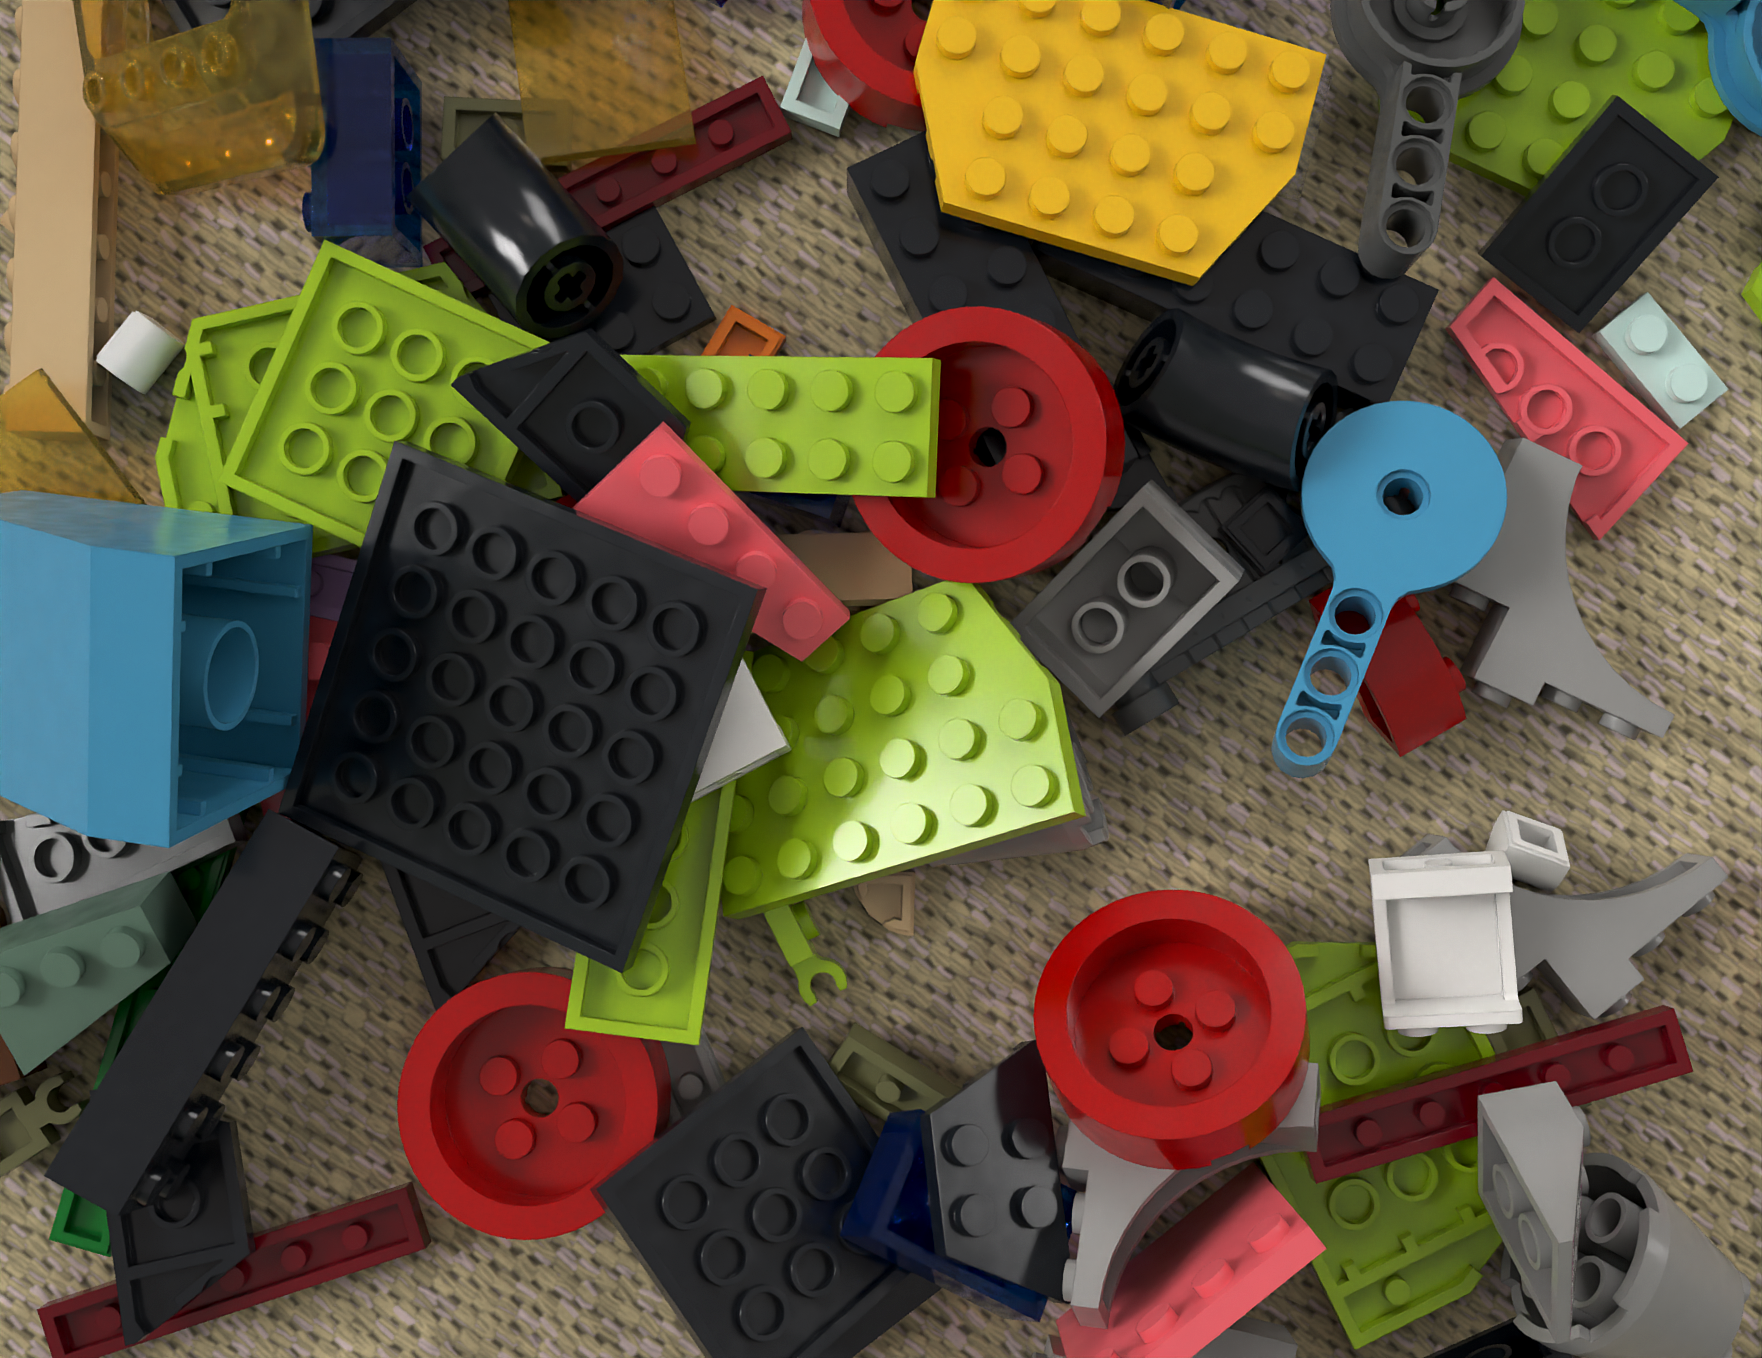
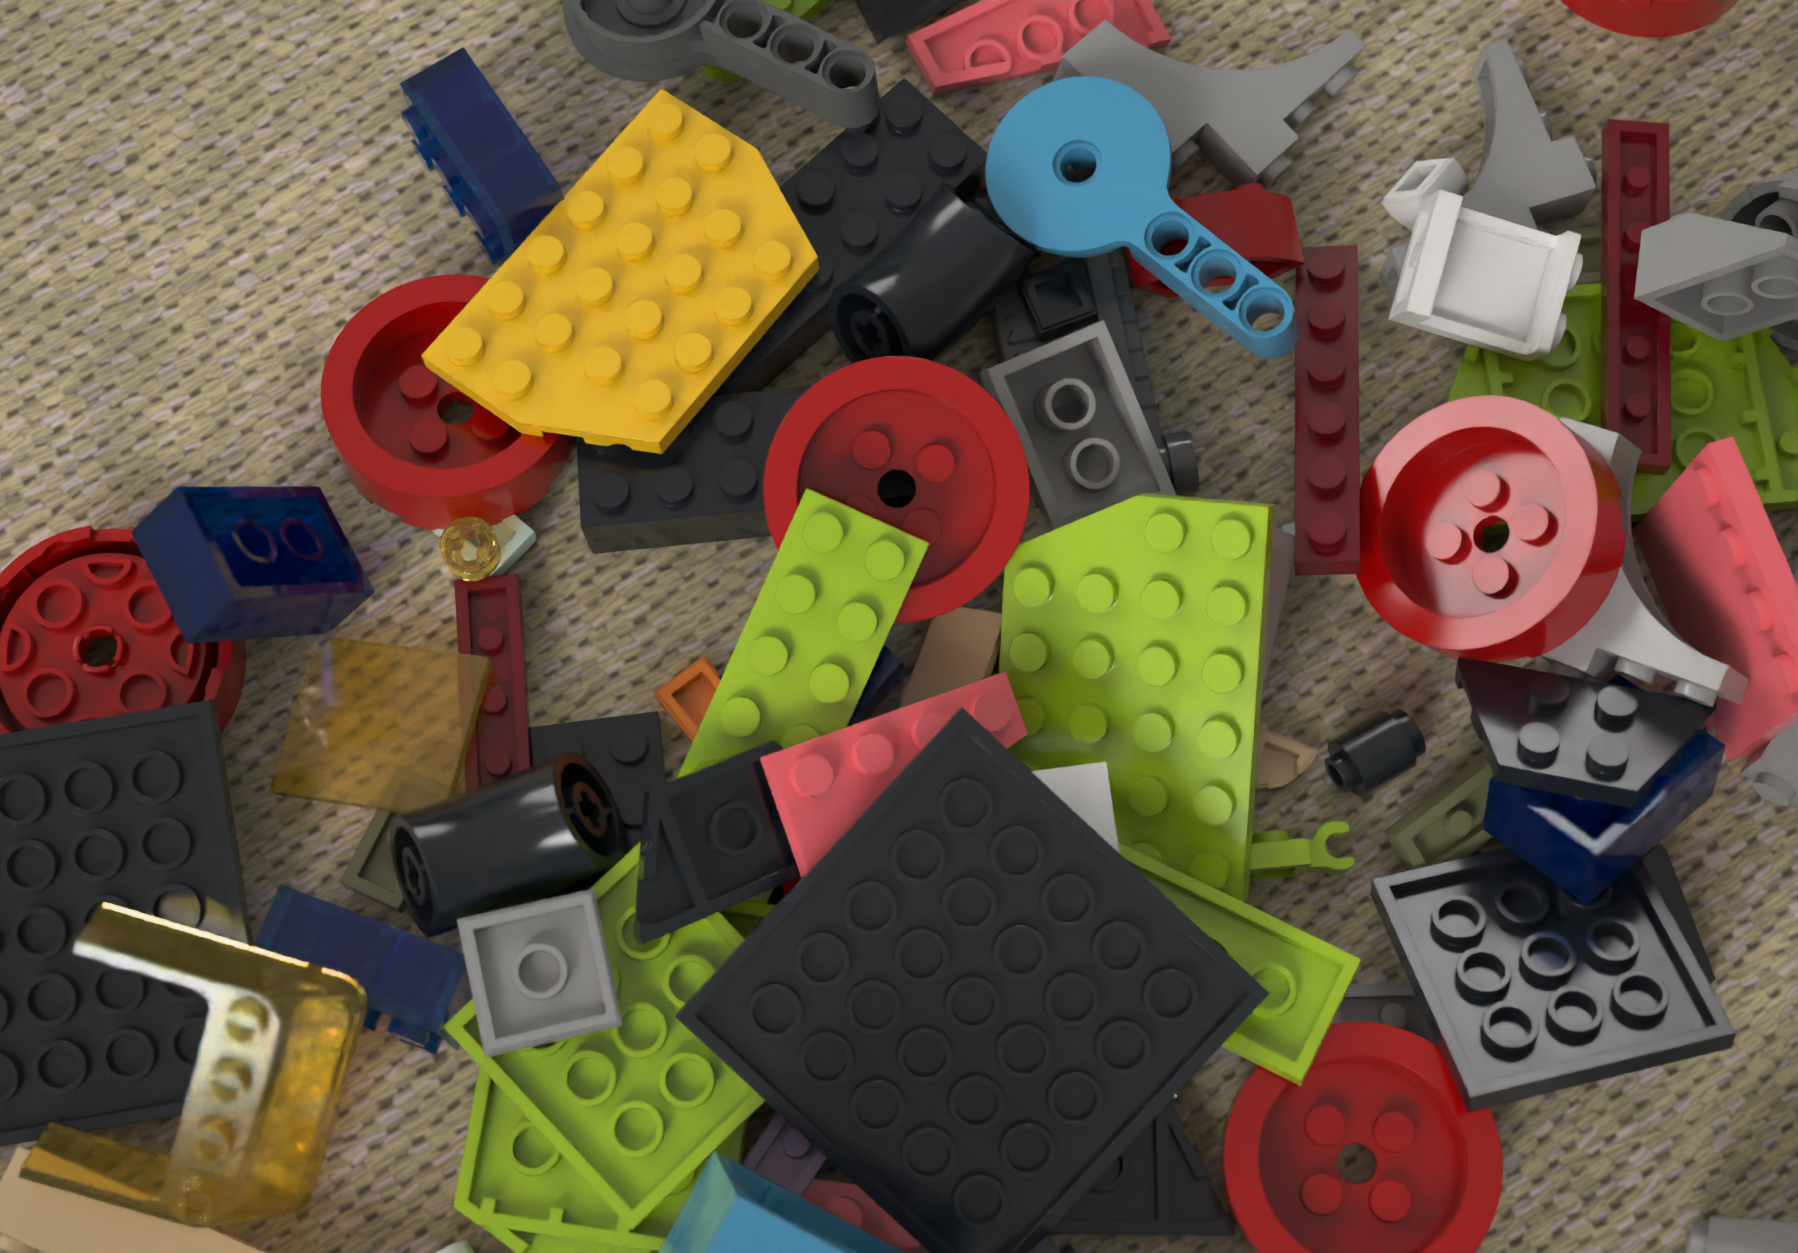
camera: 70 degrees left, 15 degrees down
(397, 304) = (539, 973): none -> light grey tile
(800, 58) = (454, 540): none -> clear yellow bush
(928, 989) = (1374, 752): none -> black brick
(1249, 831) = (1327, 413): none -> dark red plate

